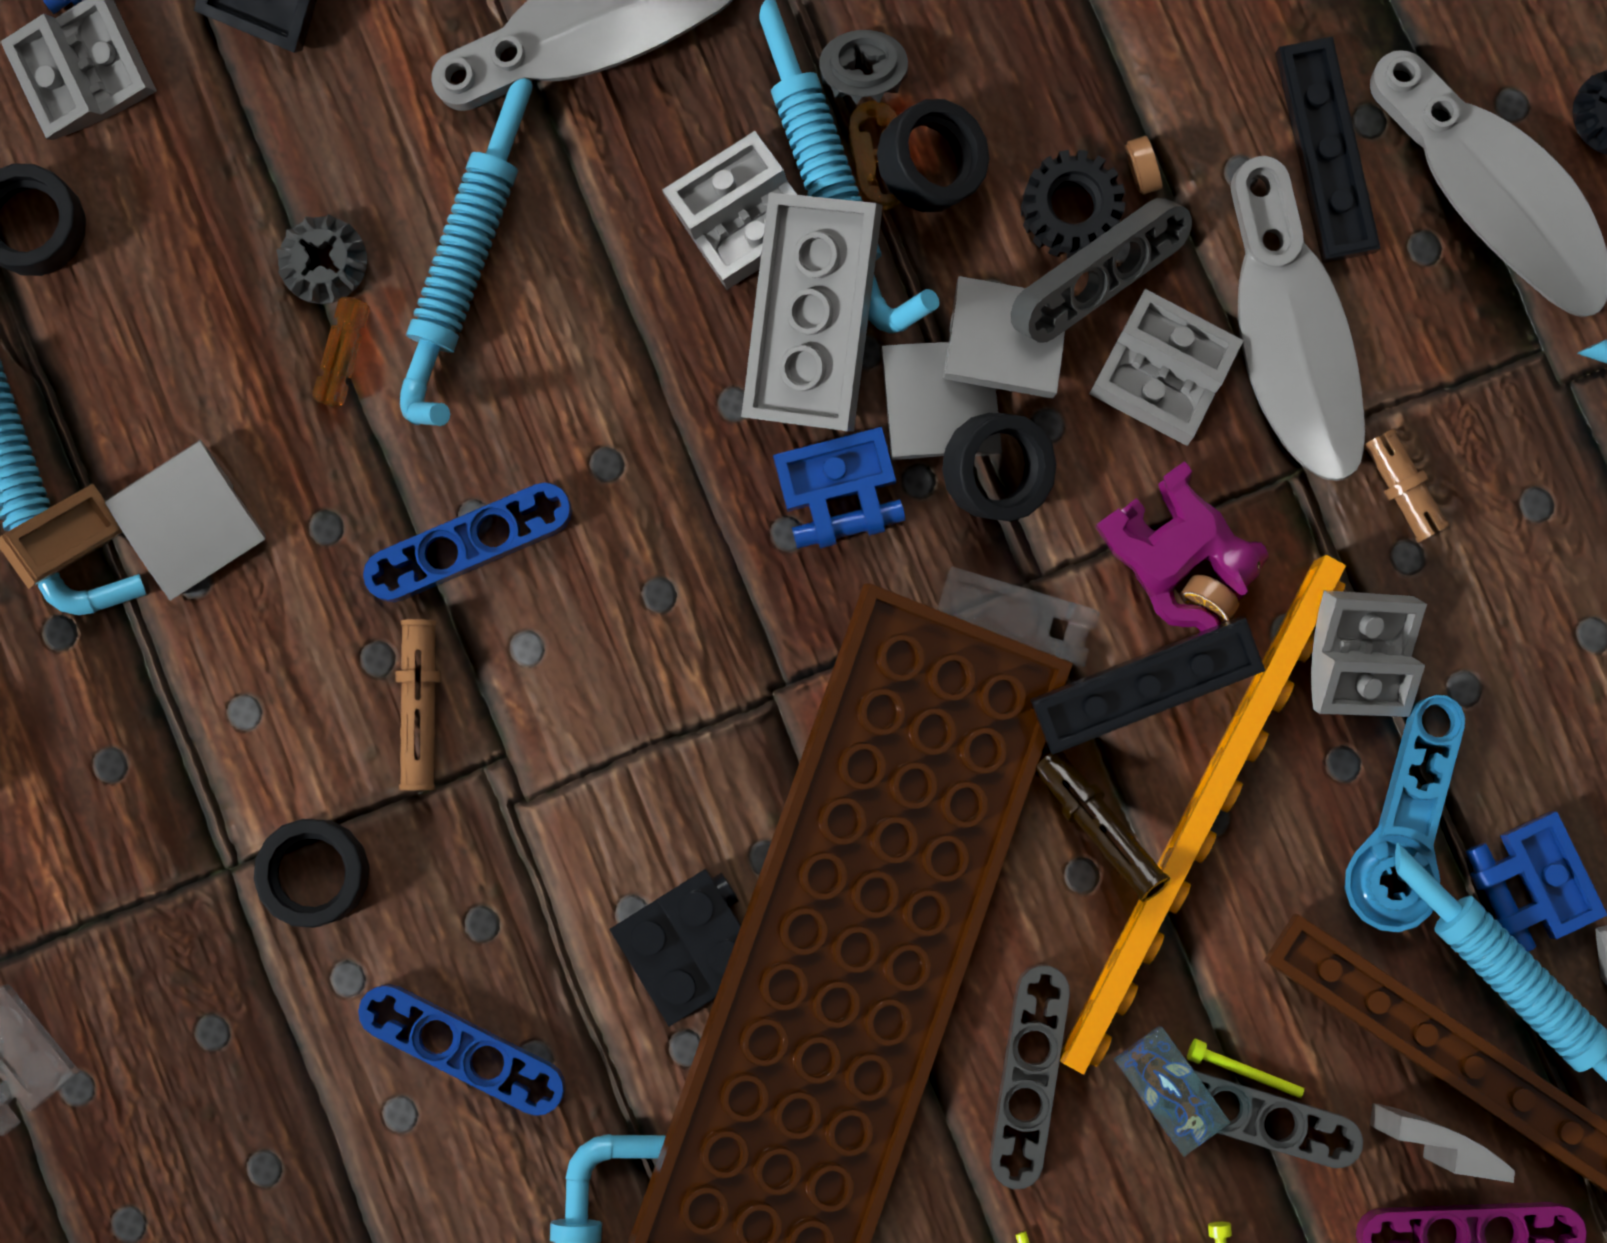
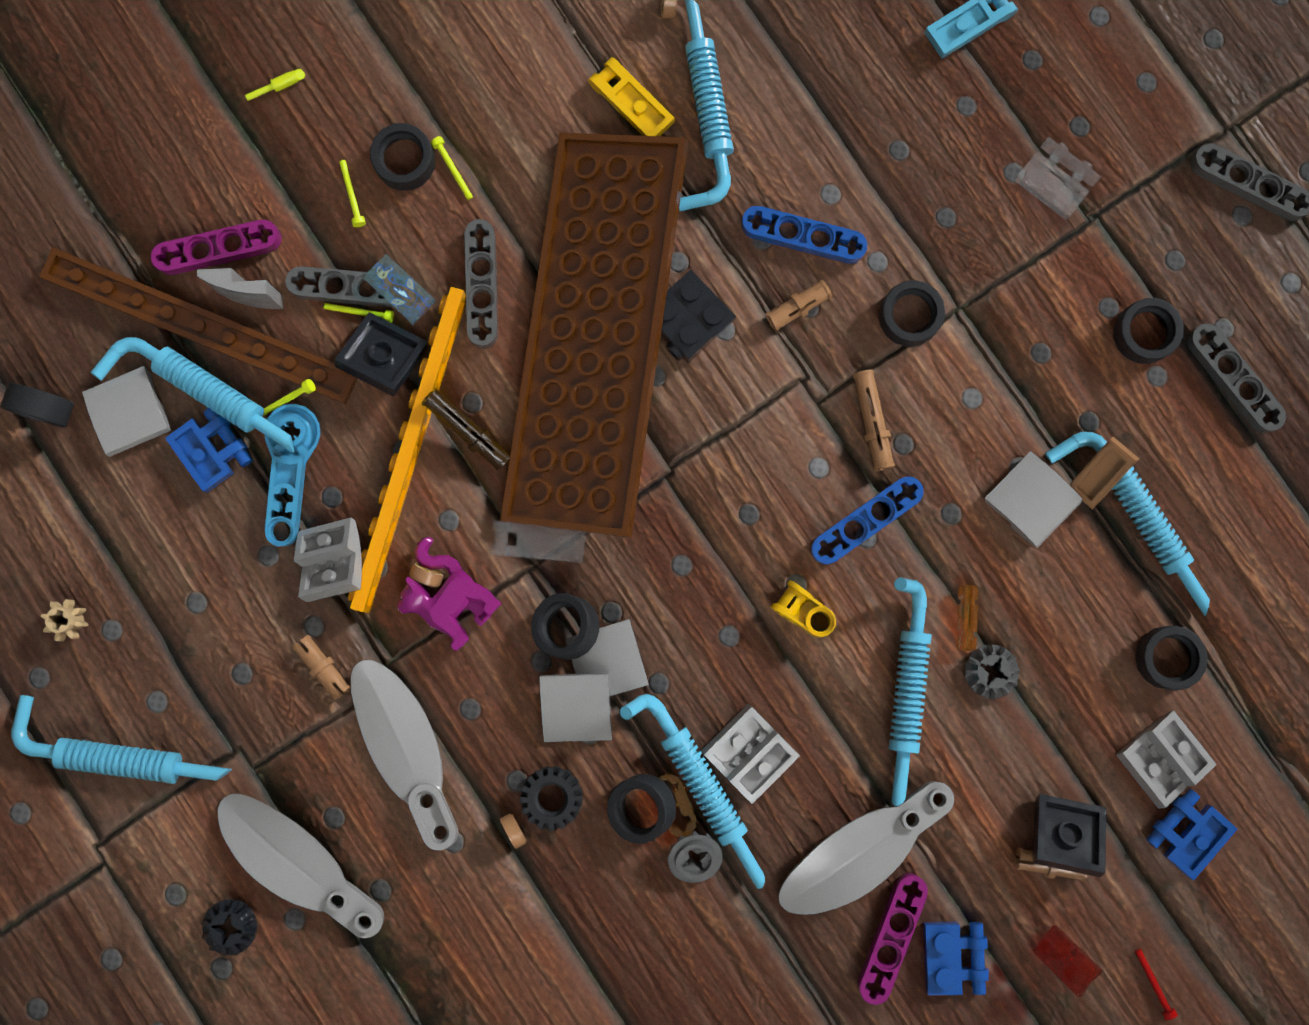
camera: 170 degrees right, 0 degrees up
(499, 927) = (798, 305): none -> medium nougat pin
(606, 415) = (803, 609): none -> yellow piece
(811, 311) = (695, 696): light grey plate -> none
(835, 471) = (662, 605): blue plate -> none
(1050, 304) = (553, 730): dark grey beam -> none
(1147, 685) = (454, 515): black tile -> none
(1166, 367) = (476, 710): light grey slope -> none
(1221, 984) = (381, 354): none -> black plate
(1327, 150) = (403, 866): black tile -> none
(1355, 951) = (307, 386): none -> neon yellow piece

